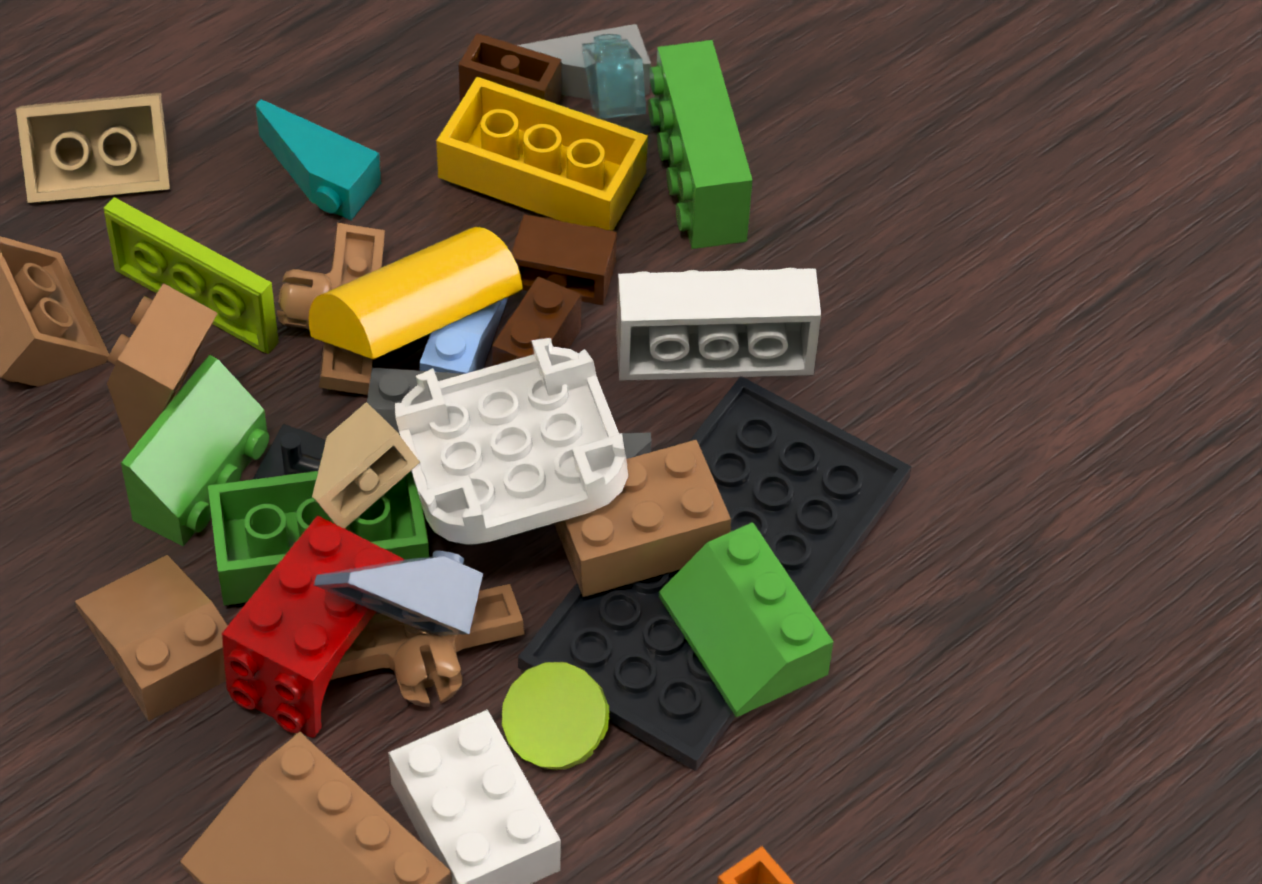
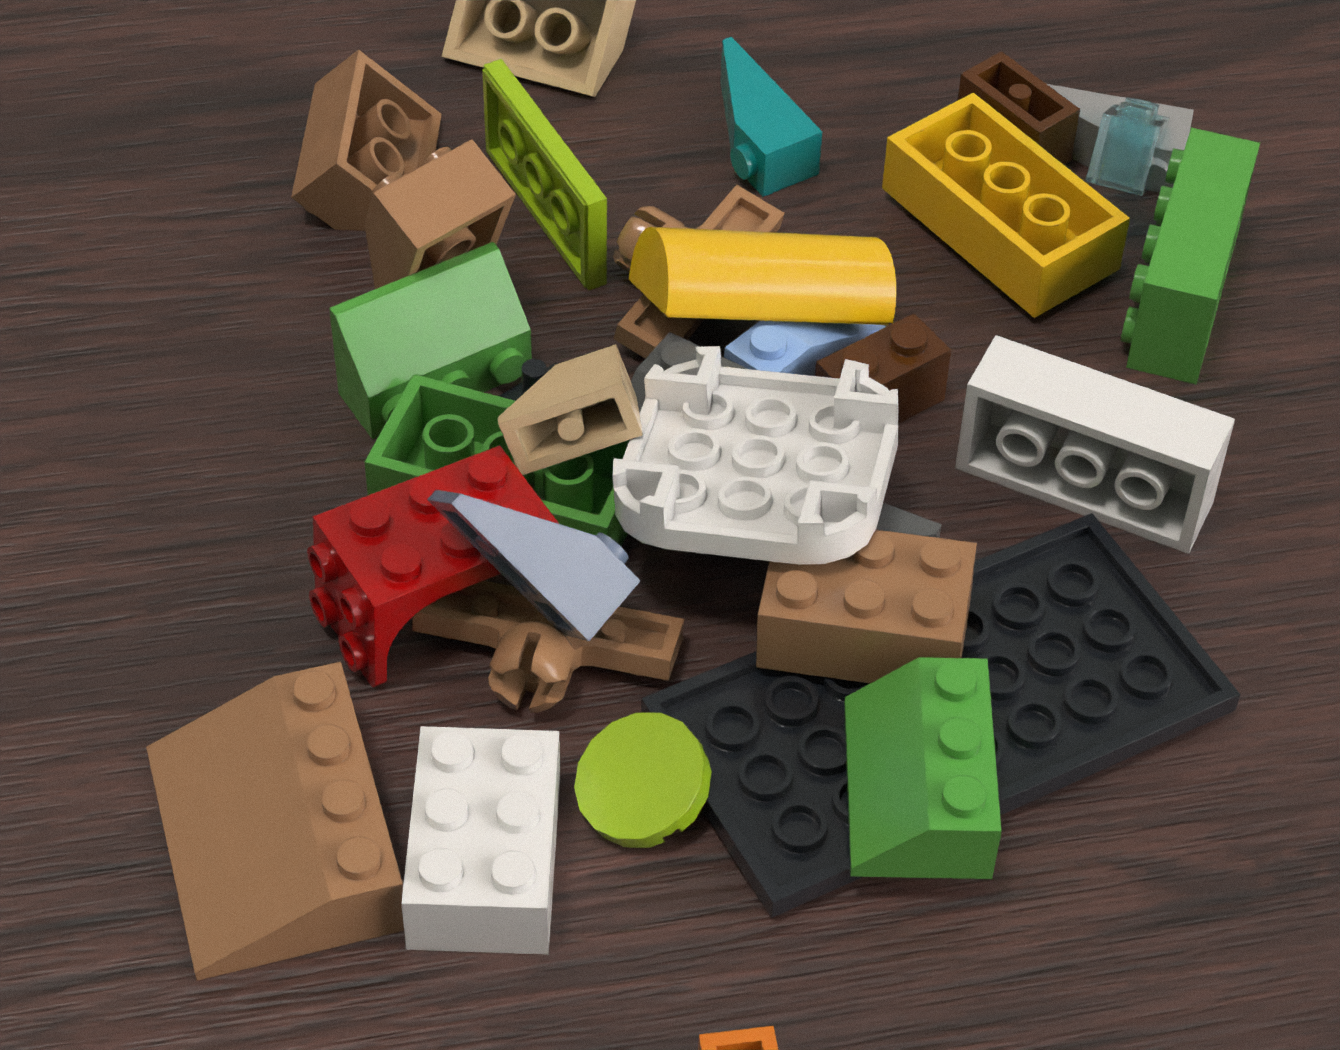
camera: 30 degrees right, 5 degrees down
(158, 635) = (266, 511): medium nougat slope -> none
(567, 255) = (964, 308): reddish brown brick -> none

